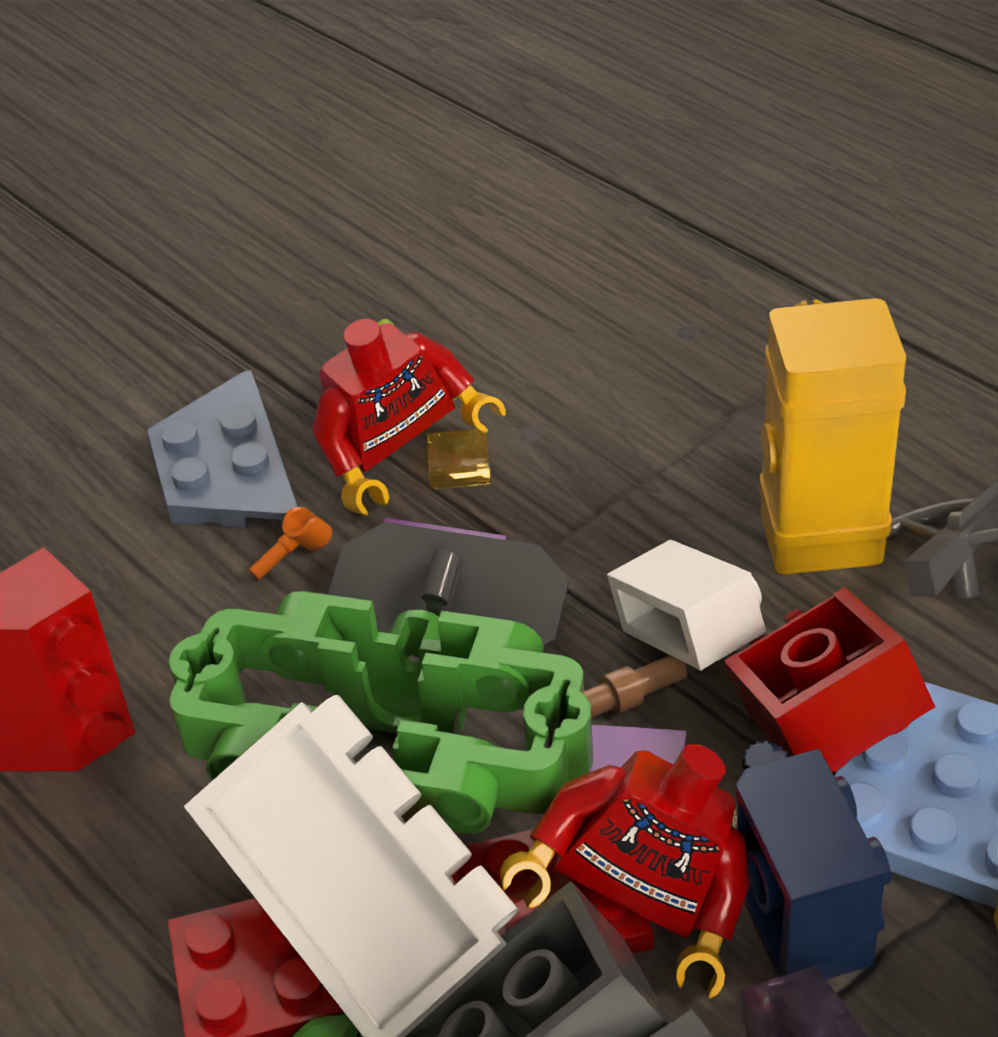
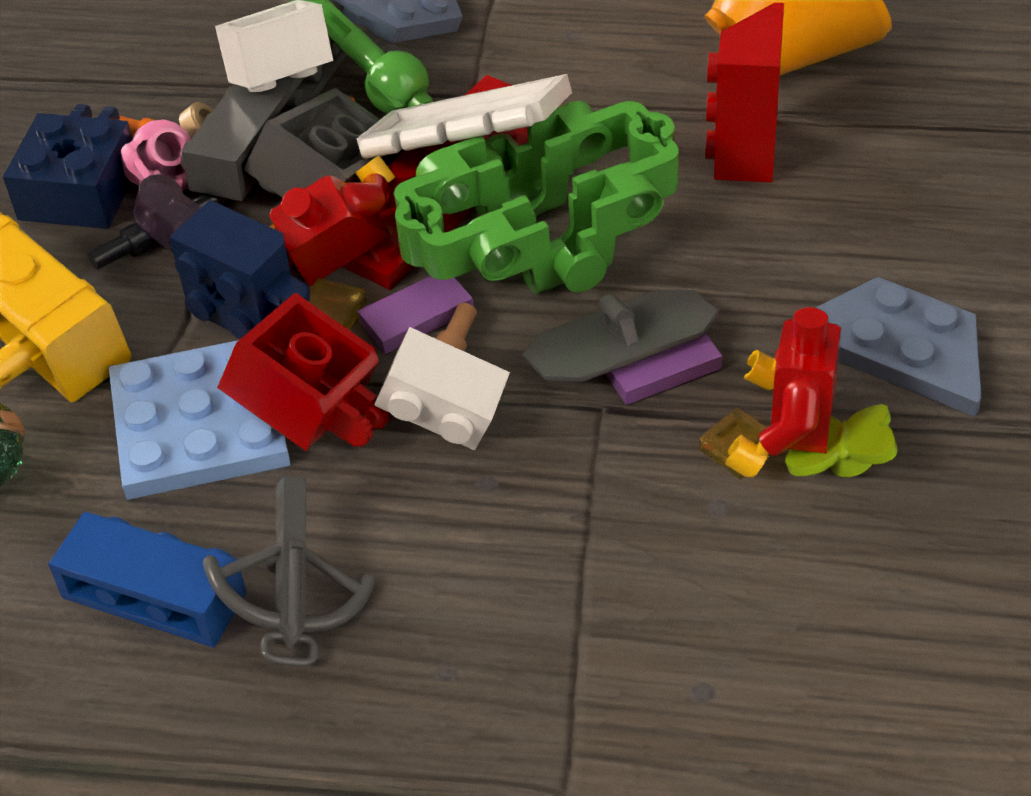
camera: 140 degrees right, 5 degrees up
(299, 528) = (766, 313): orange hand -> none
(830, 434) = (410, 481): yellow piece -> none

